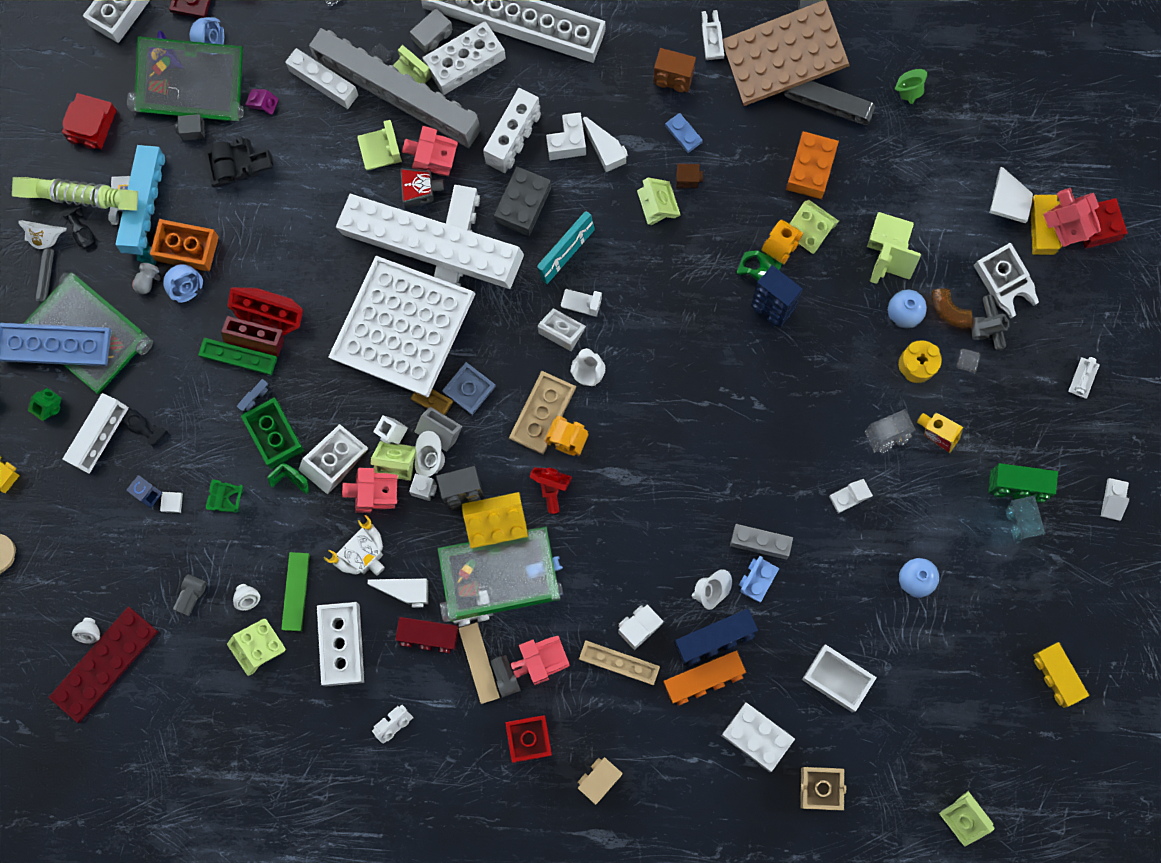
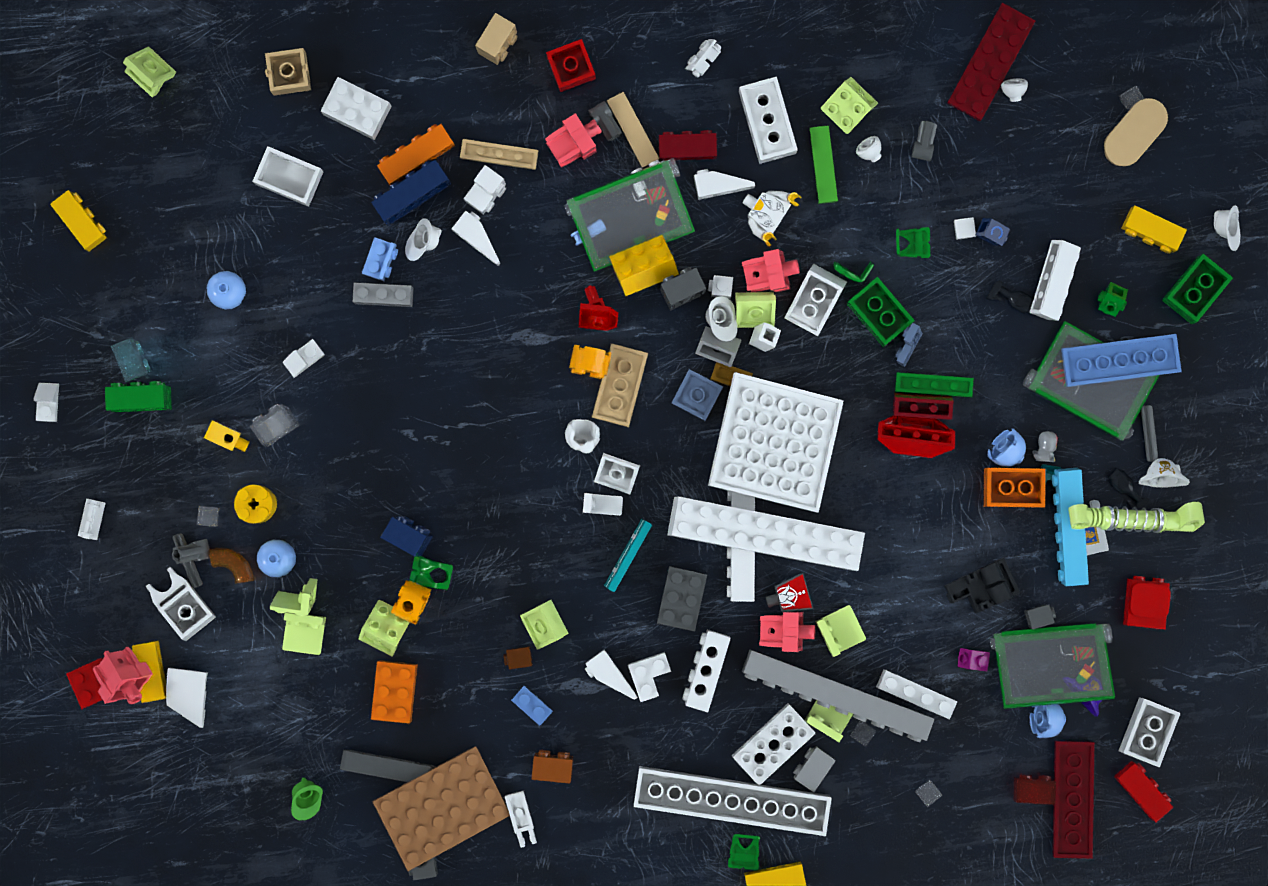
camera: 165 degrees right, 10 degrees up
(659, 586) = (472, 231): none -> white slope

